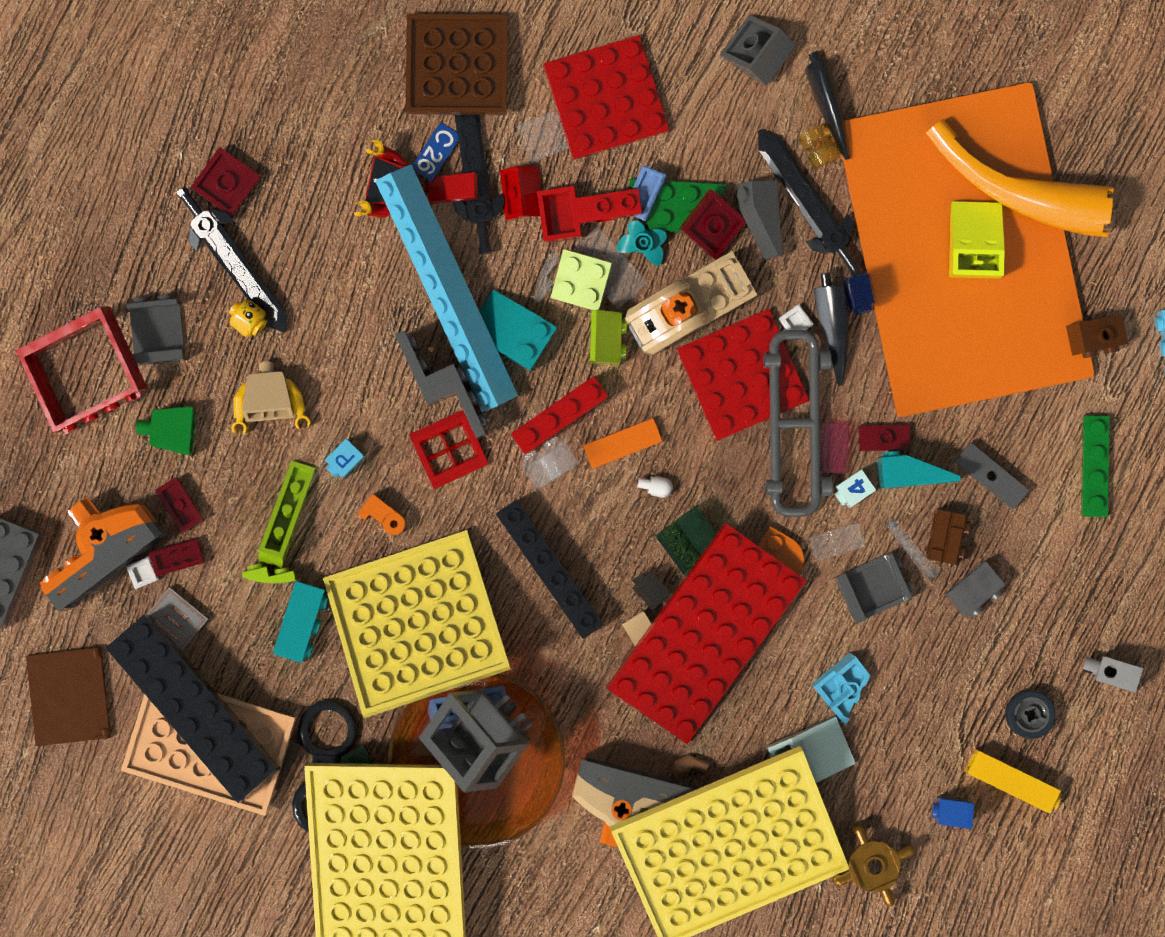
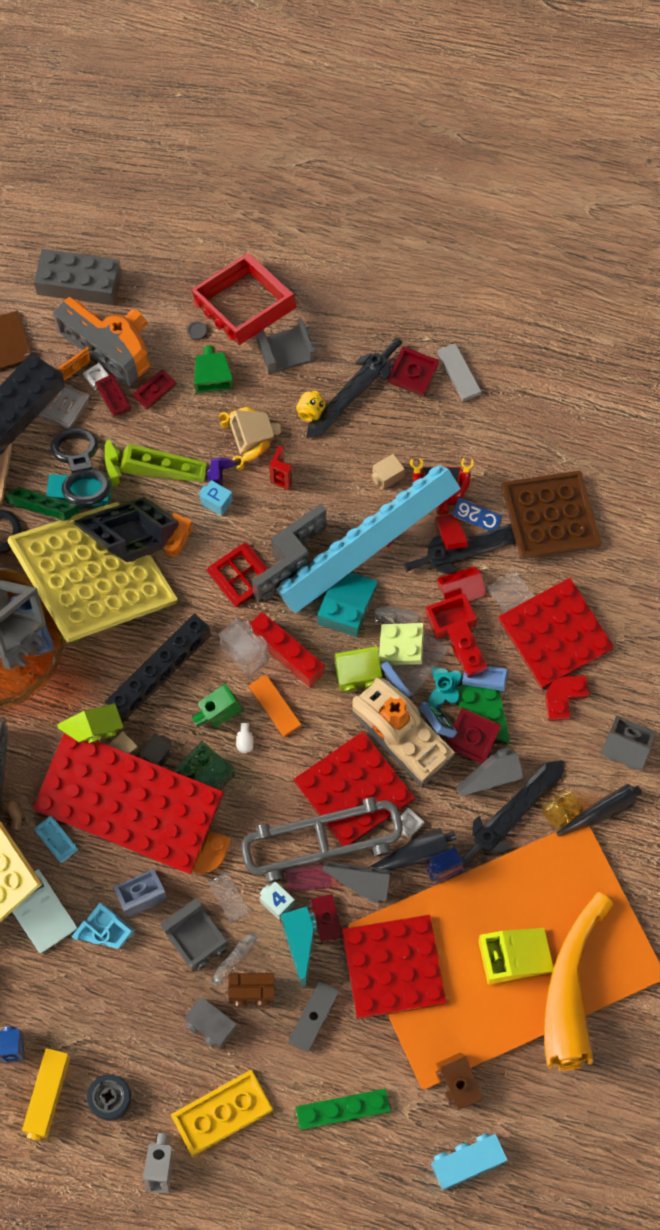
camera: 80 degrees right, 20 degrees down
(105, 436) = (197, 330): none -> dark grey piece
(122, 600) = (75, 363): none -> orange slope
(238, 126) = (459, 372): none -> light grey tile
(271, 614) = (80, 467): none -> black bar
(311, 452) = (217, 466): none -> dark purple plate
(312, 669) = (42, 503): none -> dark green plate
(333, 376) = (279, 471): none -> red panel
(356, 245) = (387, 472): none -> tan brick
(368, 570) = (130, 529): none -> black slope
(610, 657) = (93, 724): none -> lime slope
(612, 501) = (217, 707): none -> green torso
(631, 297) = (392, 677): none -> medium blue tile
(678, 113) = (560, 692): none -> red plate
(686, 260) = (438, 719): none -> medium blue tile
(728, 723) = (55, 839): none -> medium azure plate
(810, 639) = (140, 893): none -> sand blue slope
(854, 388) = (363, 880): none -> dark grey slope
(957, 376) = (393, 966): none -> red plate
(1070, 596) = (222, 1112): none -> yellow tile

